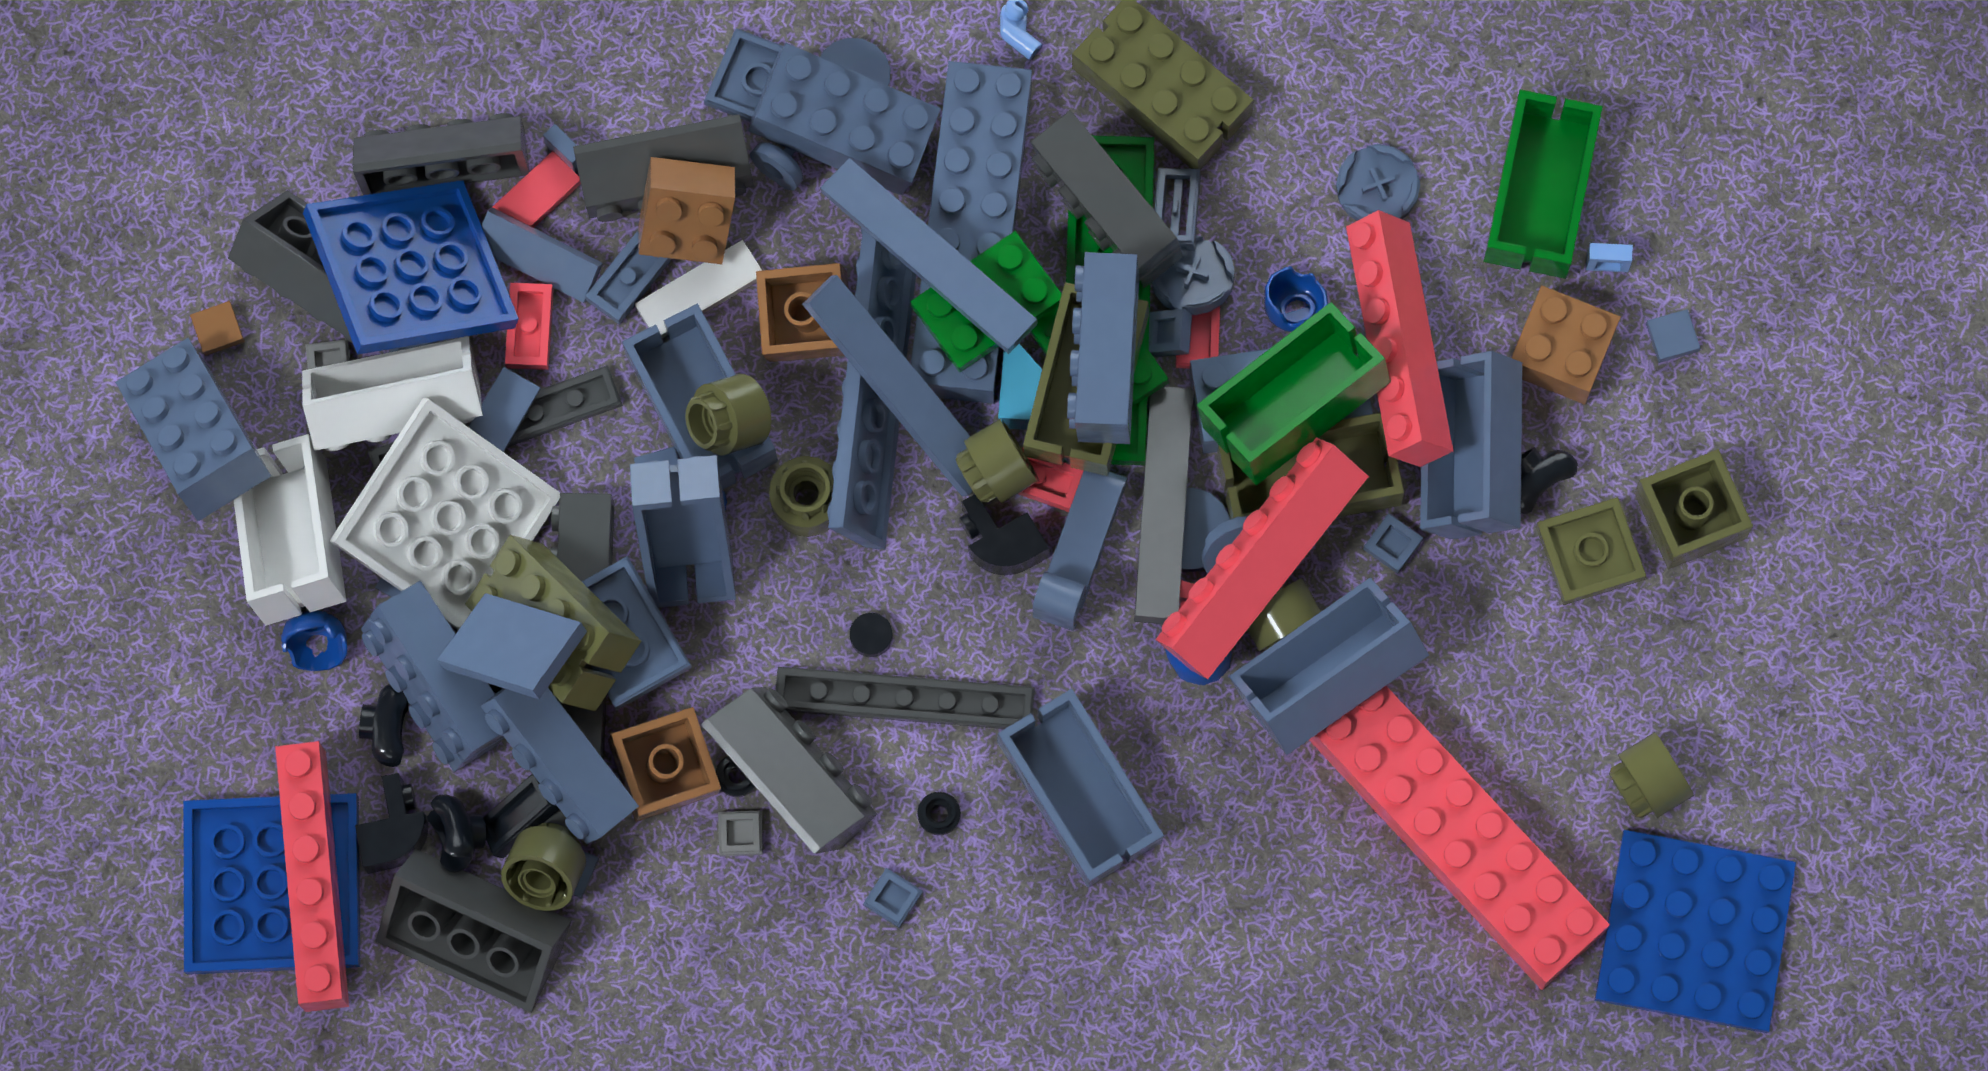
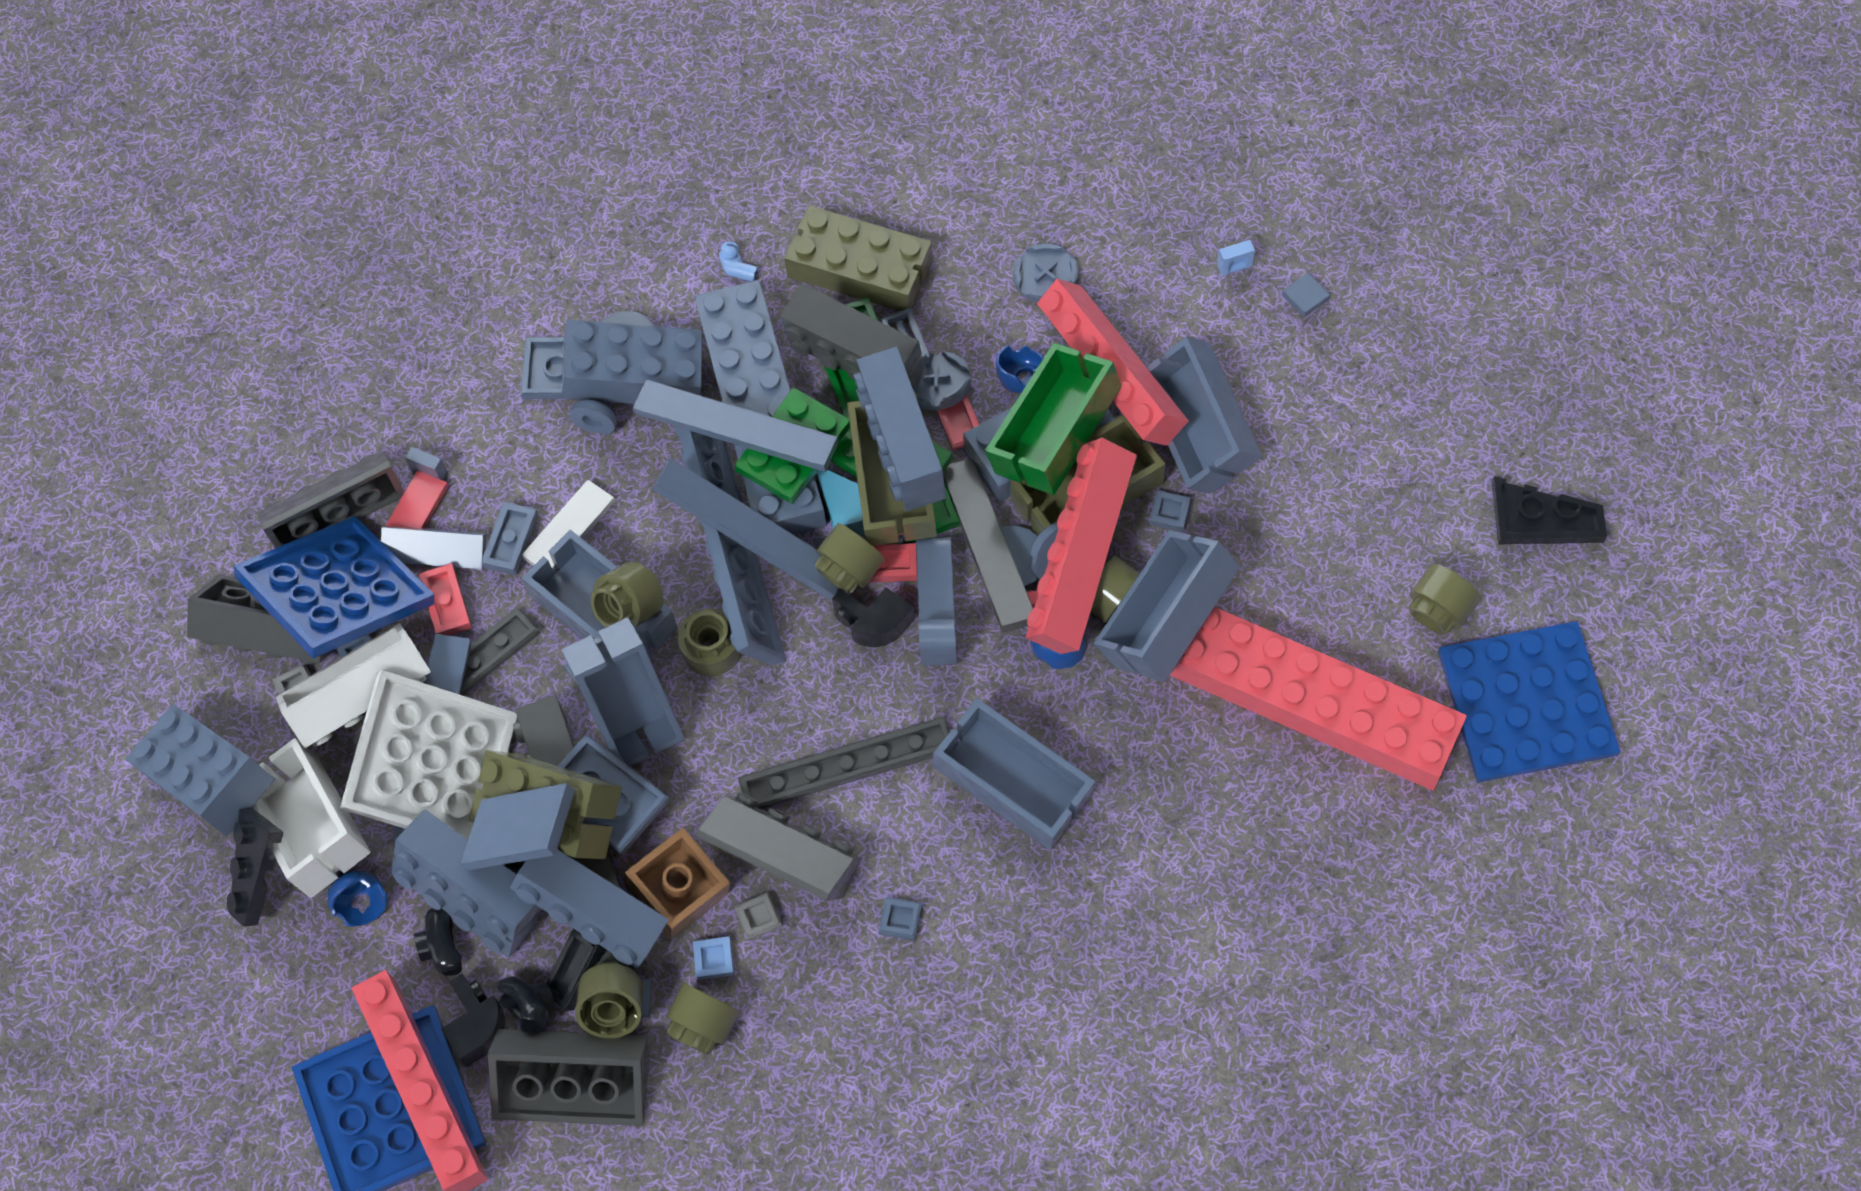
camera: 20 degrees left, 10 degrees down
(213, 562) = (252, 859): none -> black wing
(217, 328) = (197, 694): medium nougat tile -> none
(617, 169) = (506, 446): dark grey slope -> none
(634, 924) = (700, 1019): none -> olive piece
(674, 860) = (713, 958): none -> light blue tile
(686, 210) = (536, 468): medium nougat brick -> none
(728, 787) = (746, 881): black plate -> none
(785, 324) = (649, 517): medium nougat brick -> none
(871, 634) = (801, 726): black tile -> none
(938, 799) = (905, 829): black plate -> none
(1169, 332) = (940, 423): sand blue tile -> none
(1542, 472) = (1261, 416): black piece -> none
(1543, 184) = (1166, 225): green piece -> none
(1564, 344) = (1233, 324): medium nougat brick -> none
(1590, 551) = (1318, 460): olive plate -> none
(1693, 509) = (1380, 401): olive brick -> none
(1818, 724) = (1542, 518): none -> black wing

